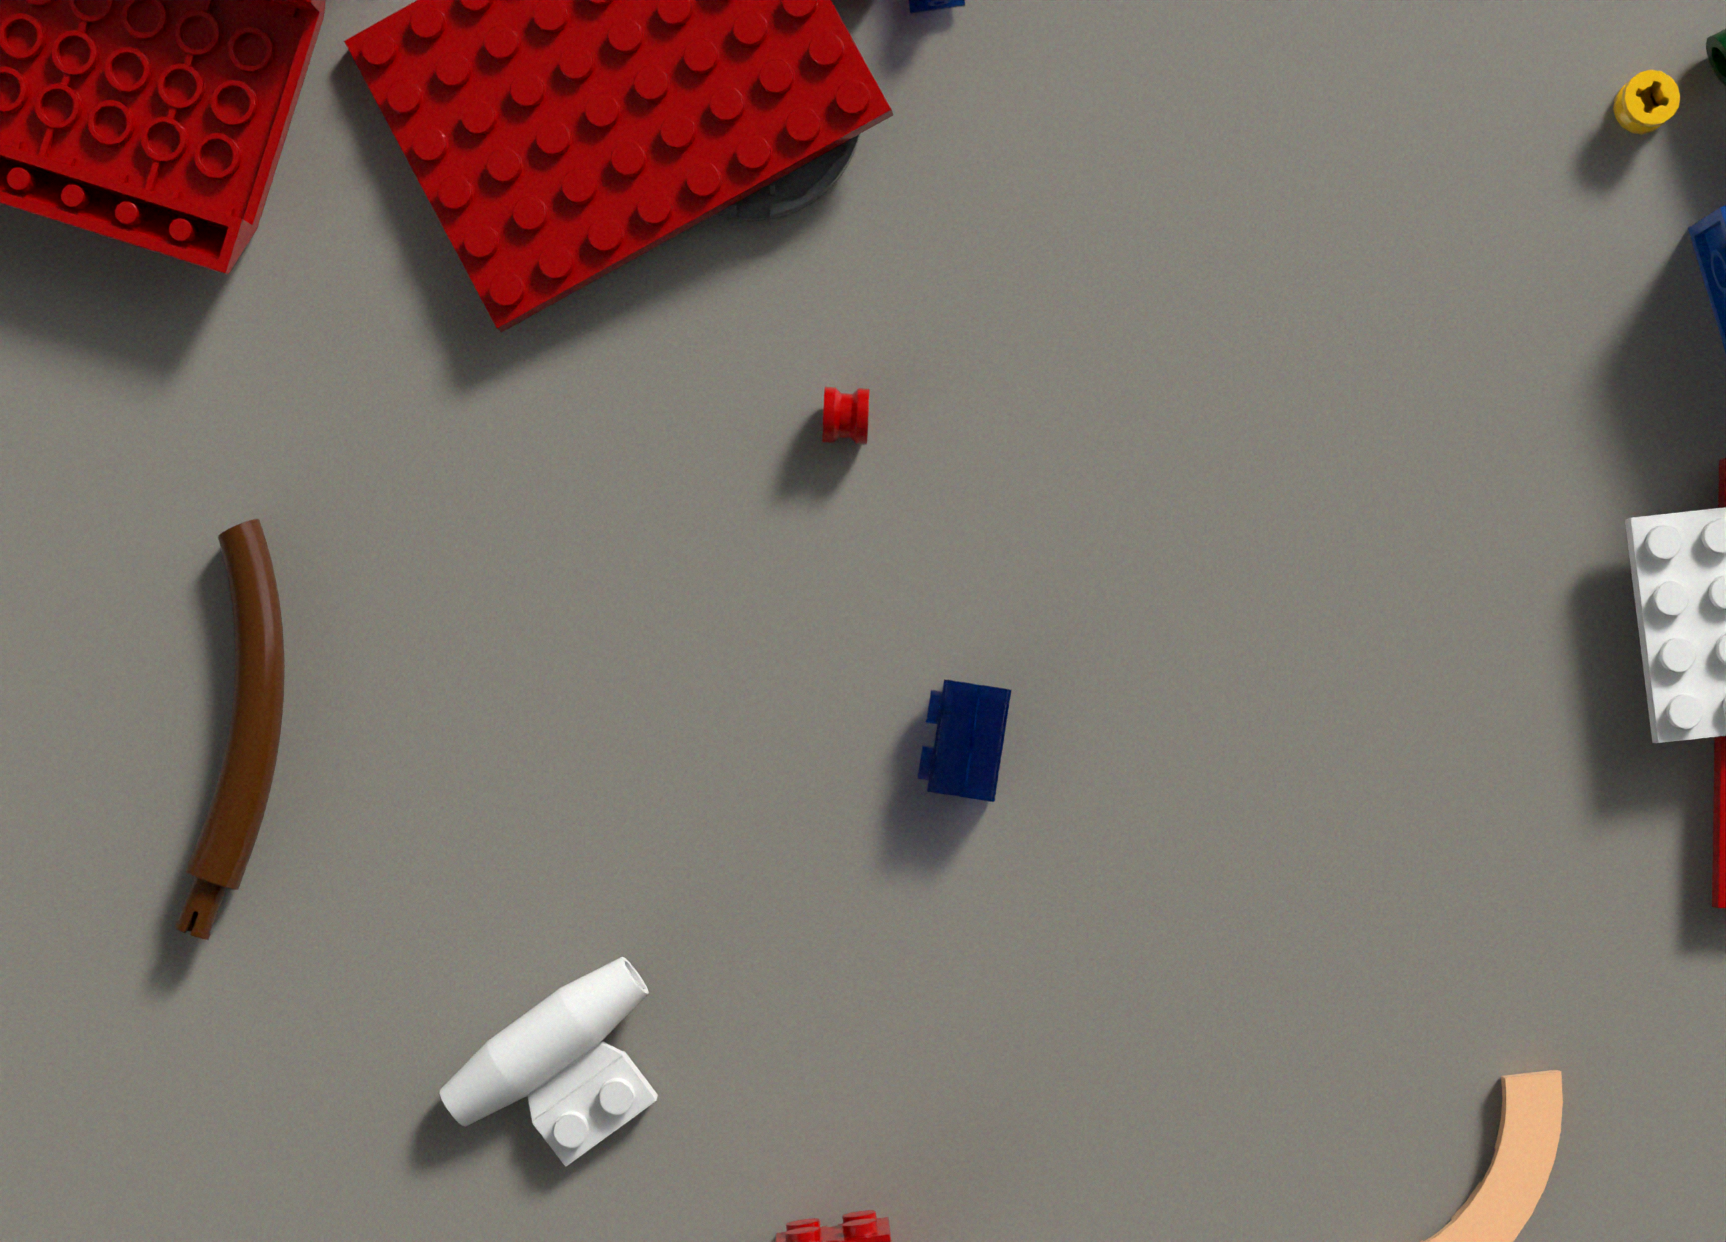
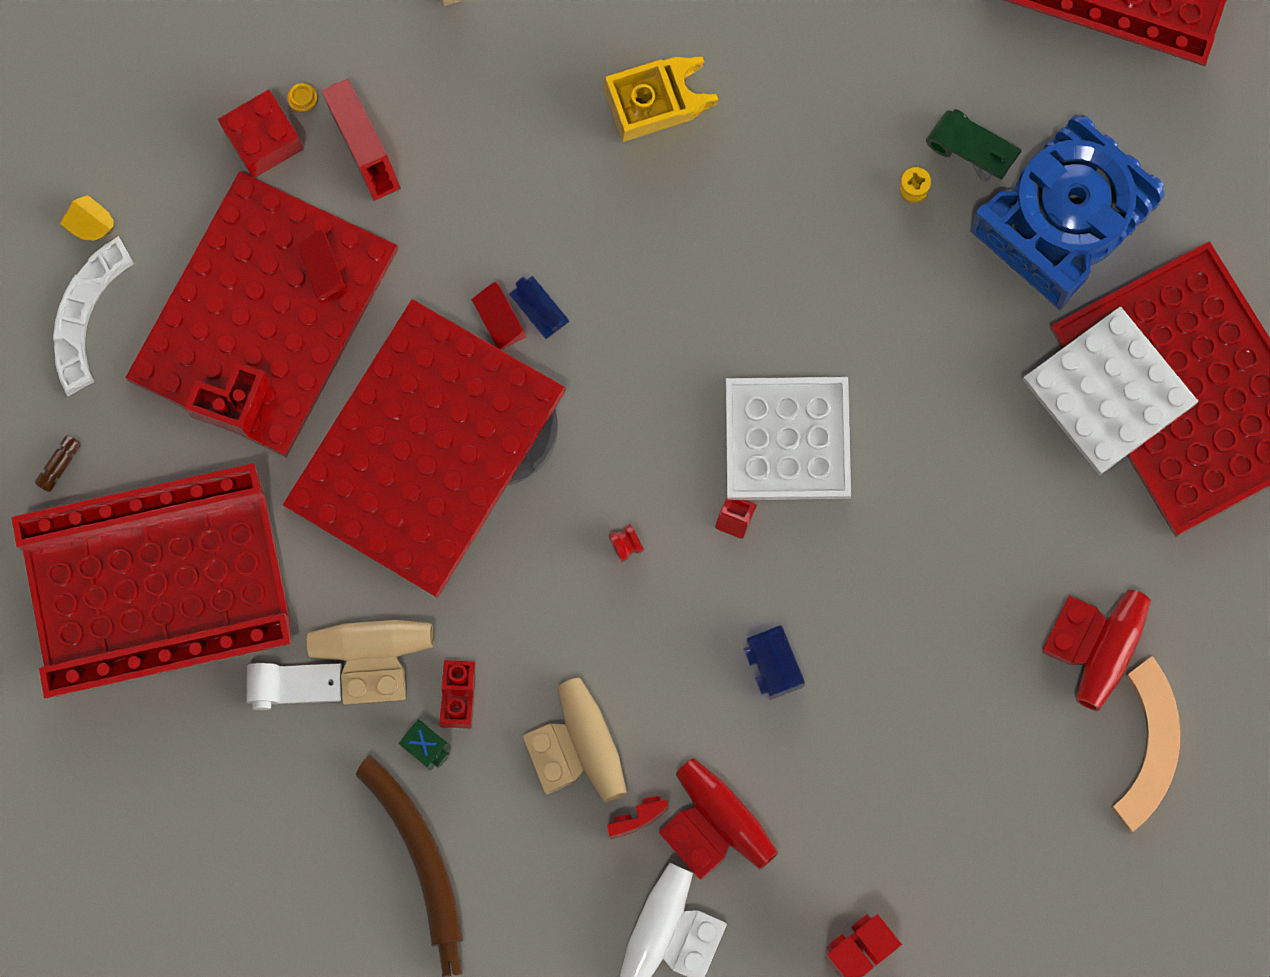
camera: 20 degrees left, 10 degrees down
(200, 337) = (292, 684): none -> white door
(349, 361) = (371, 656): none -> tan plate
(351, 554) = (425, 745): none -> dark green brick
(448, 501) = (457, 694): none -> red slope
(589, 693) = (577, 746): none -> tan plate
(632, 858) = (647, 813): none -> red slope
(733, 936) = (716, 823): none -> red plate
(1043, 471) = (735, 517): none -> red slope
(1198, 396) = (788, 438): none -> white plate
(1493, 1009) = (1099, 643): none -> red plate

